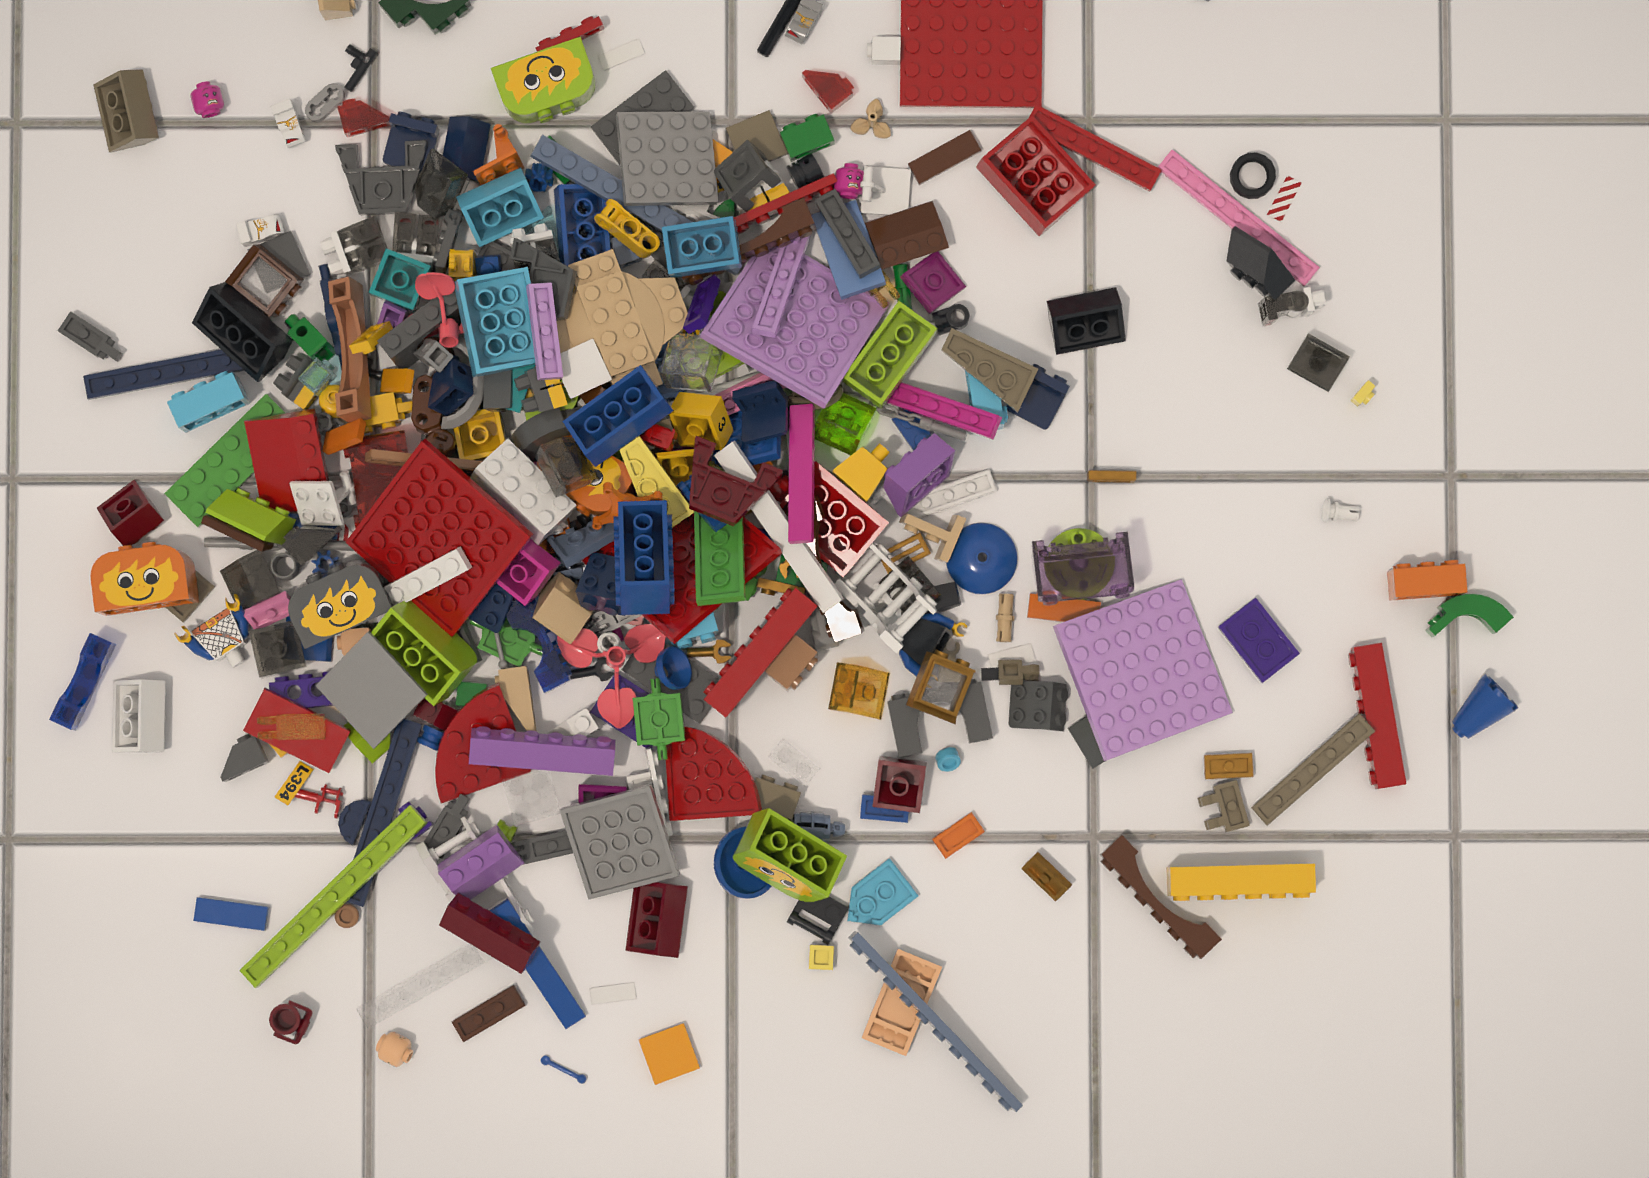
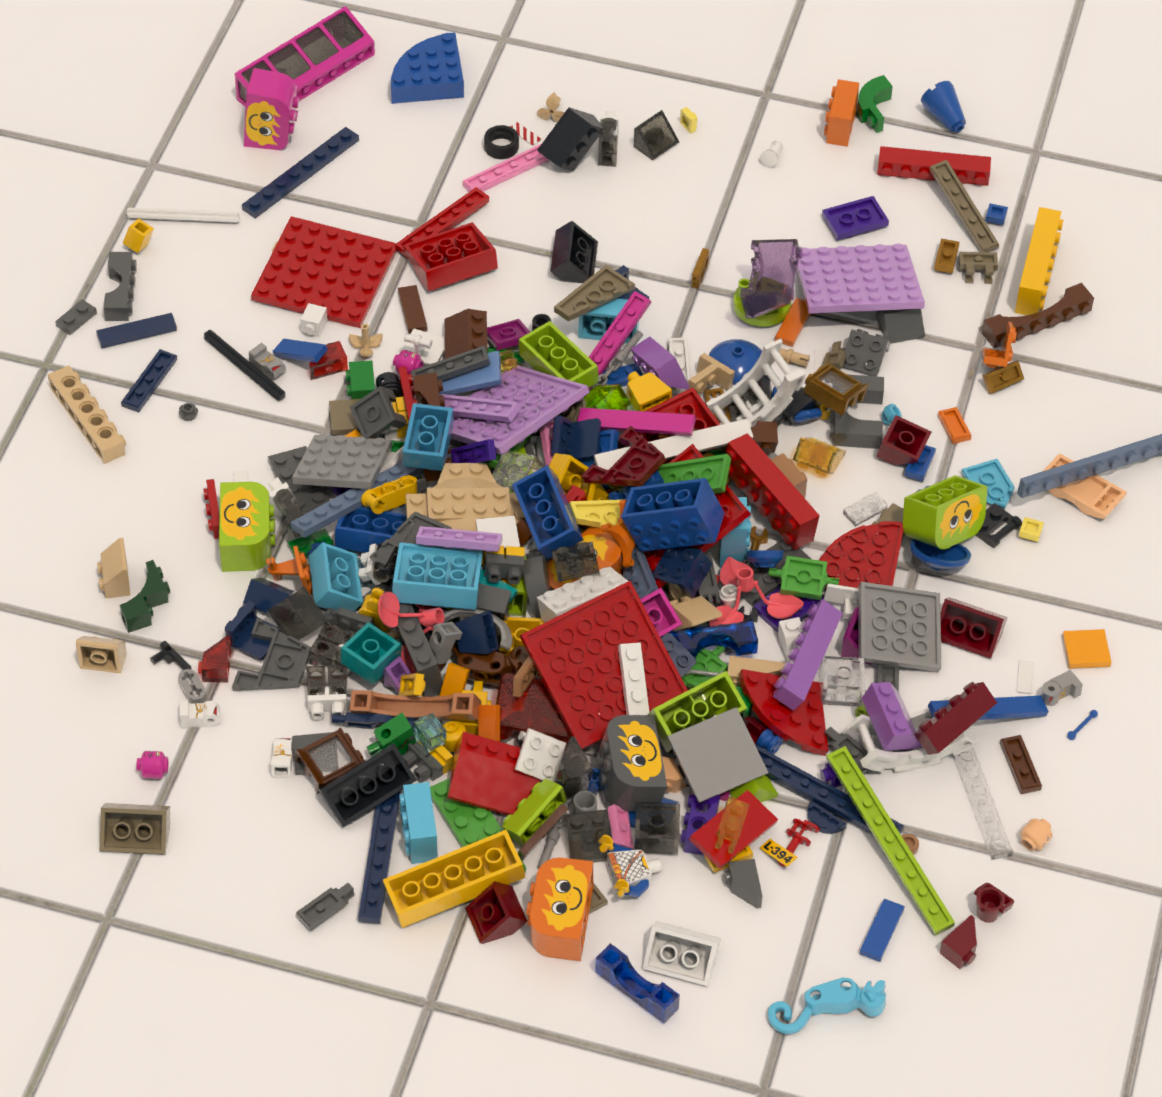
camera: 75 degrees left, 35 degrees down
(123, 883) = (831, 1000): none -> medium azure animal
(147, 459) = (453, 878): none -> yellow brick
(232, 1000) = (961, 944): none -> dark red slope
(582, 122) = (285, 502): none -> clear smoke hips
(601, 1034) = (1060, 687): none -> light grey leg
(827, 52) = (300, 350): none -> blue tile
(1074, 862) = (996, 358): none -> orange bracket
(1319, 811) = (996, 214): none -> blue plate
(1328, 219) = (552, 103): none -> tan plant
(1345, 49) = (428, 71): none -> blue brick

